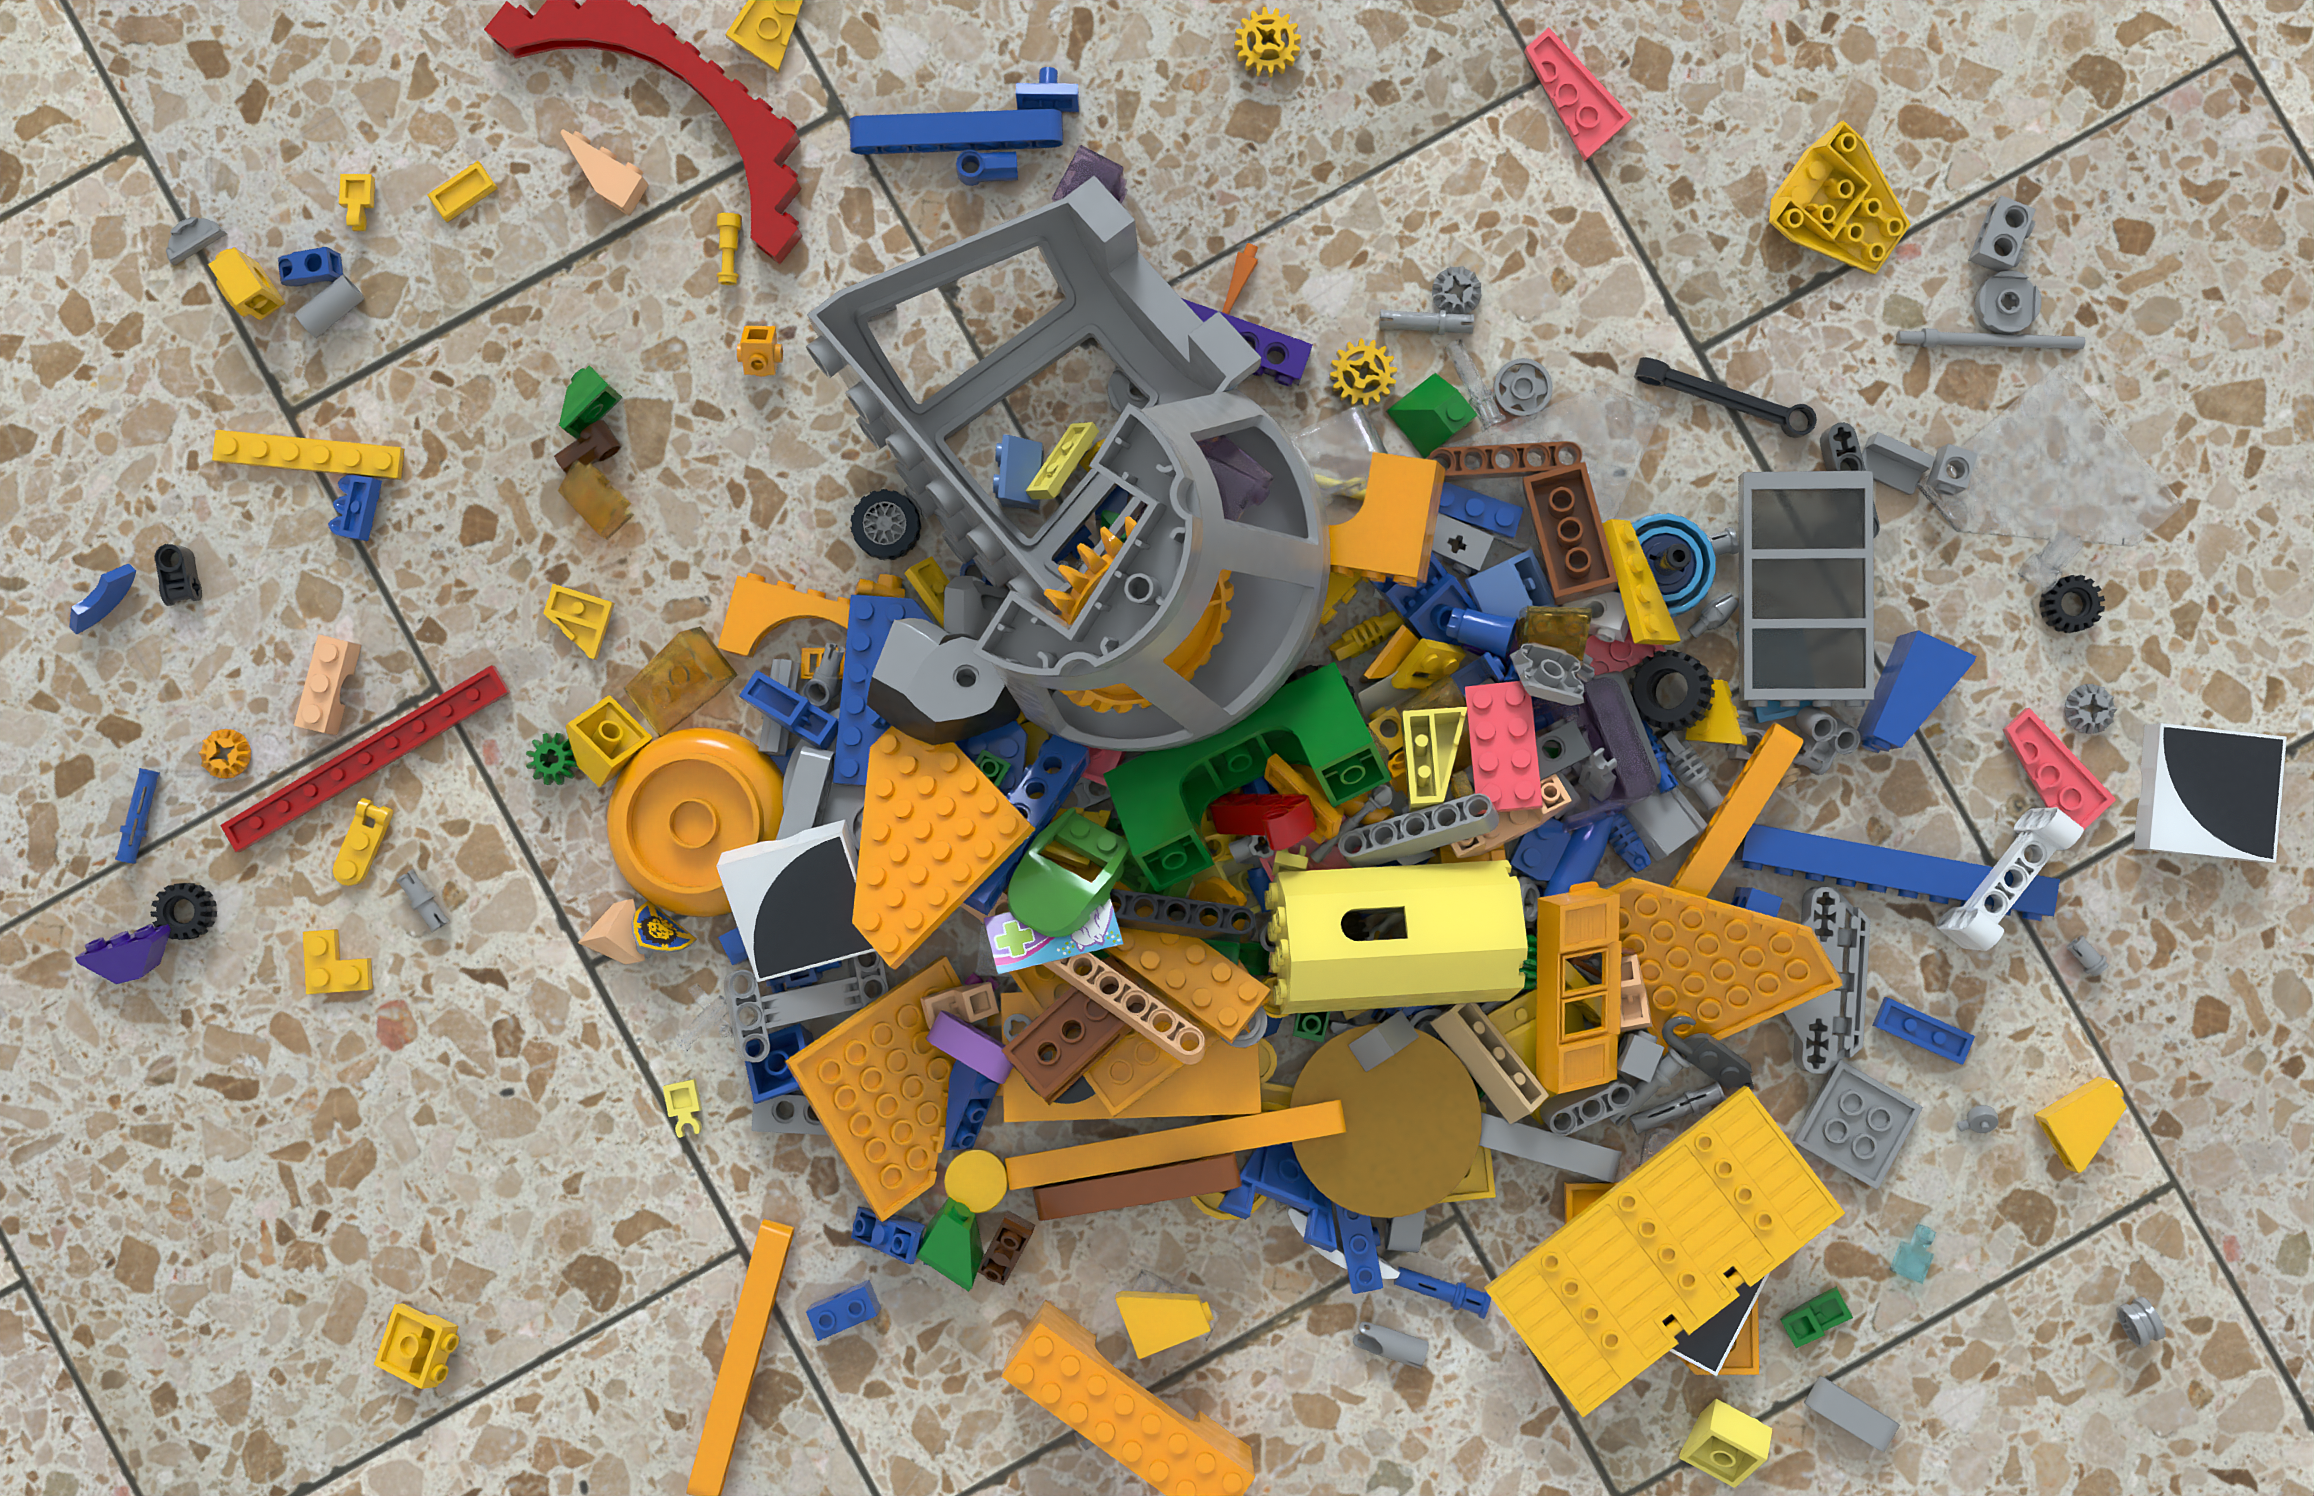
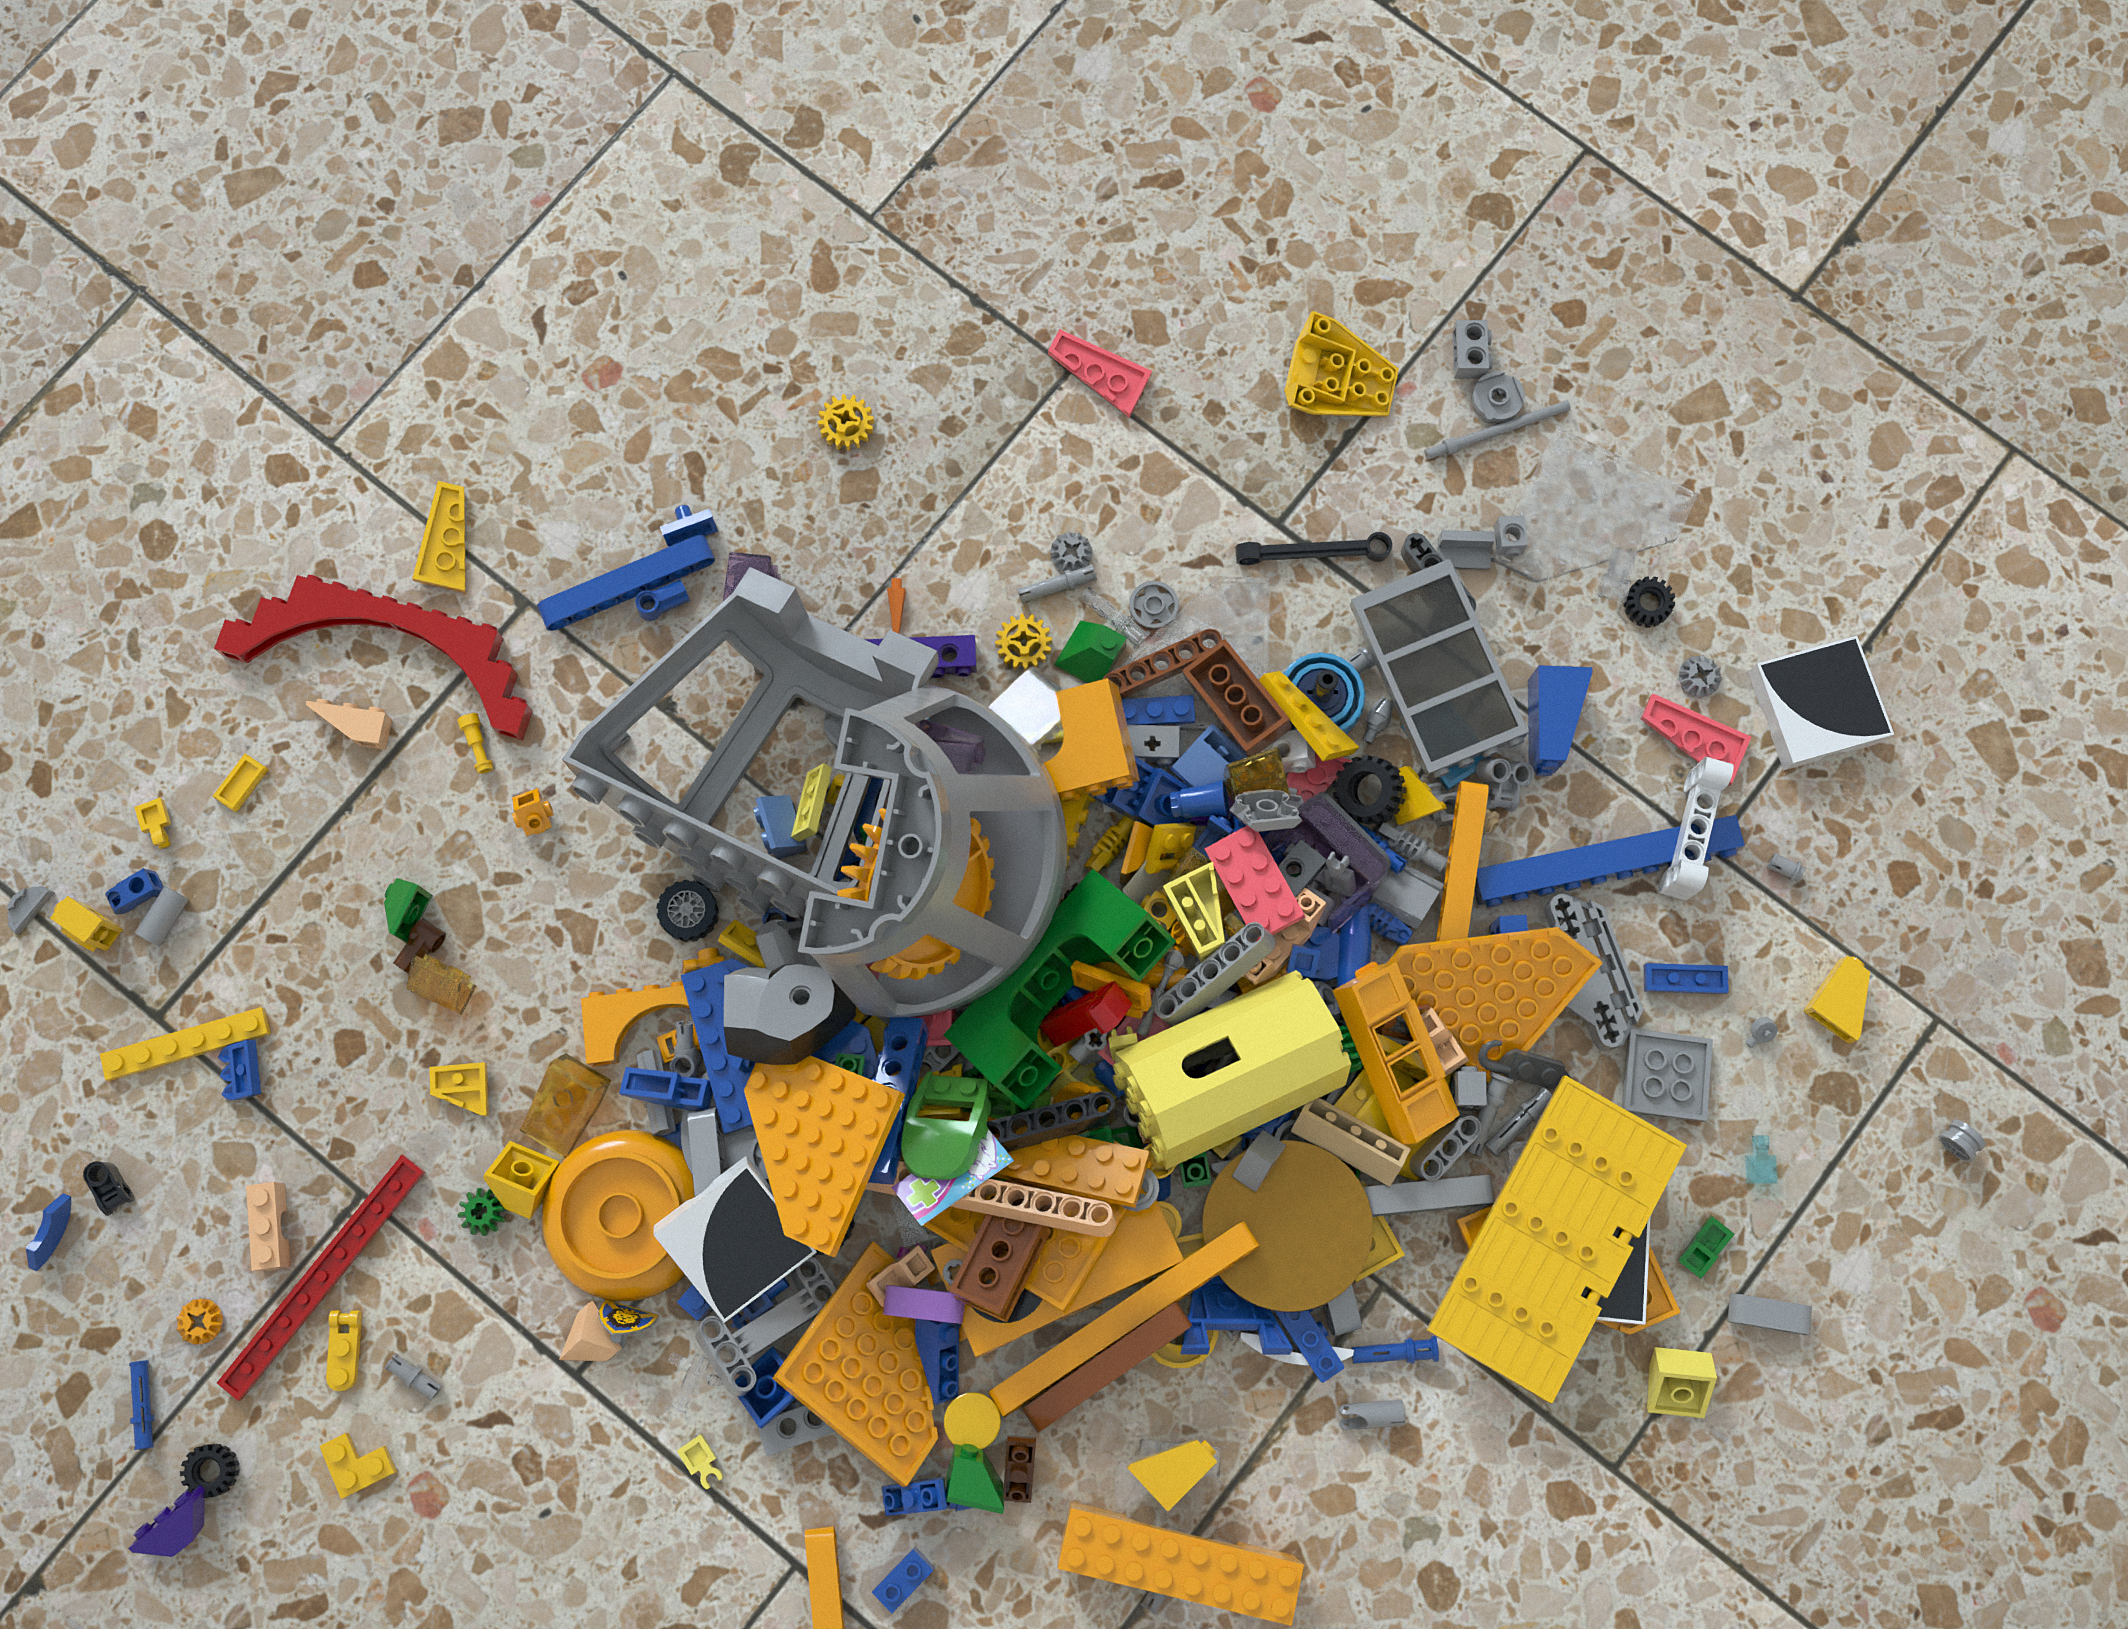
camera: 25 degrees left, 10 degrees down
(1520, 851) = (1304, 960): none -> blue plate

